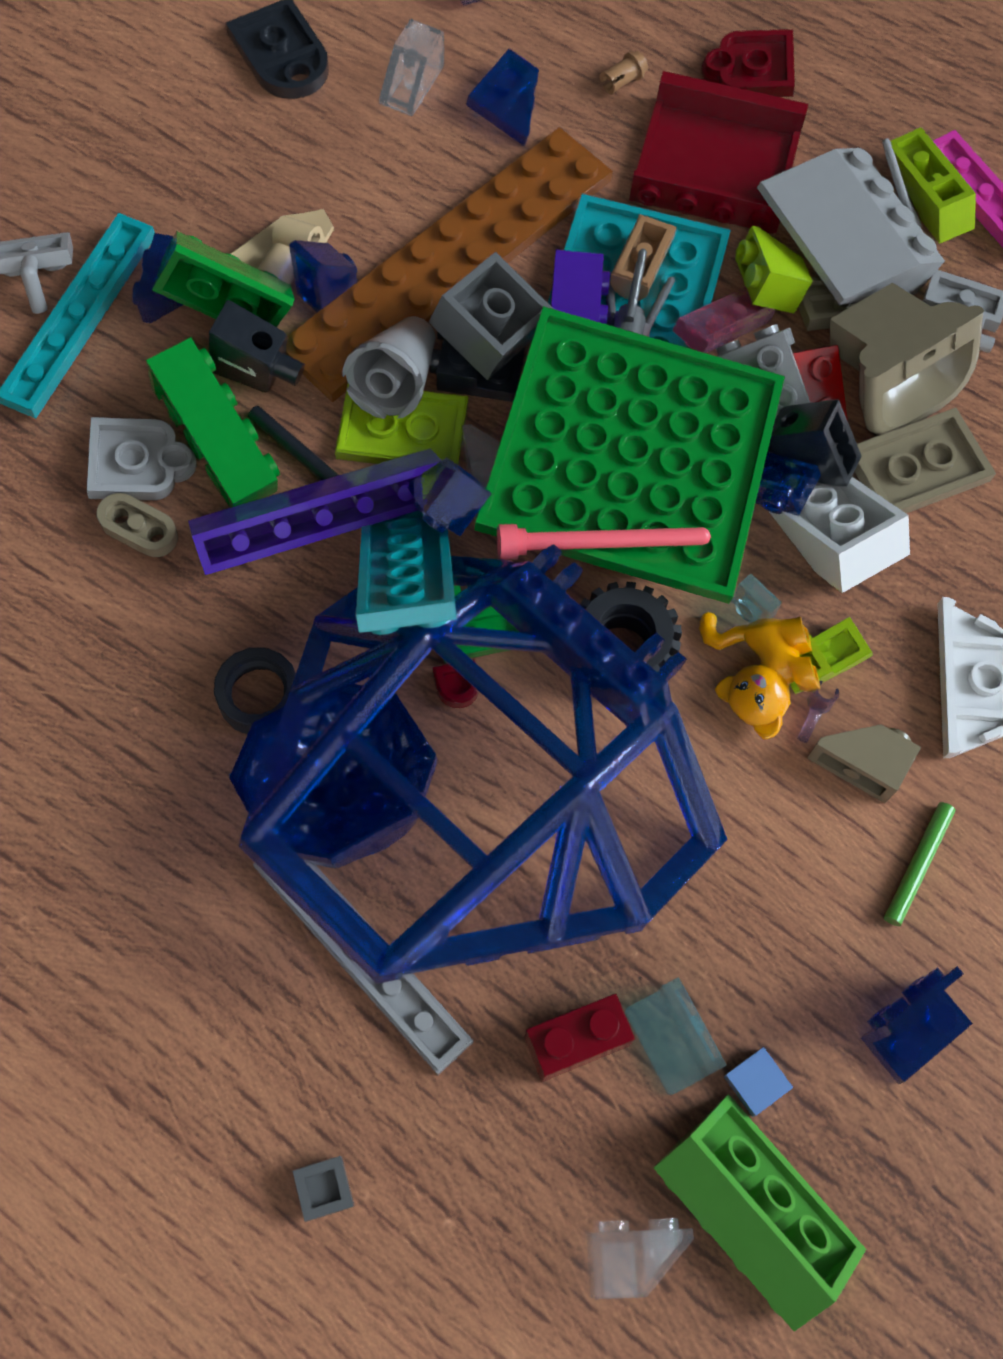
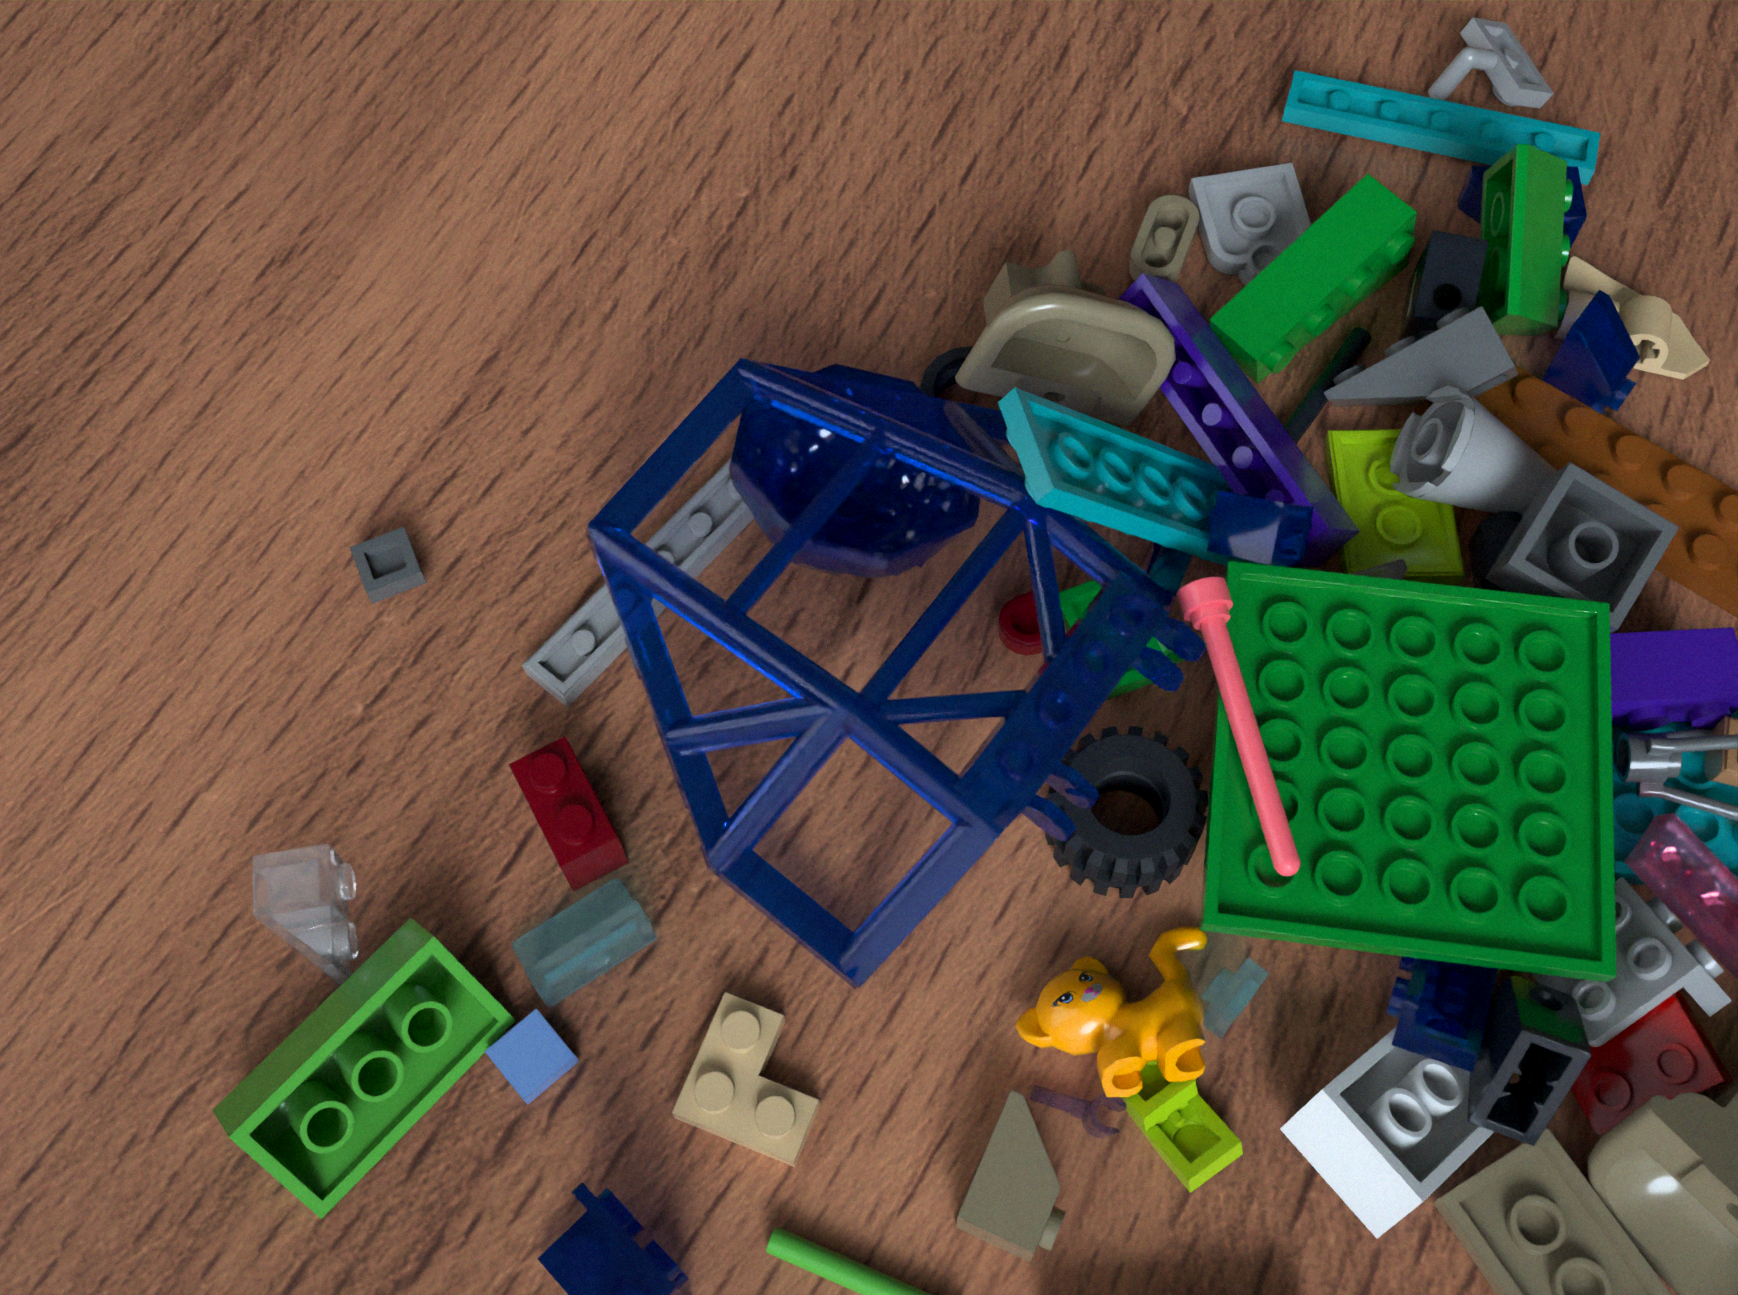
camera: 90 degrees right, 5 degrees down
(236, 613) = (1068, 343): none -> dark tan piece
(317, 358) = (1459, 355): none -> dark grey slope
(788, 940) = (728, 1086): none -> tan plate

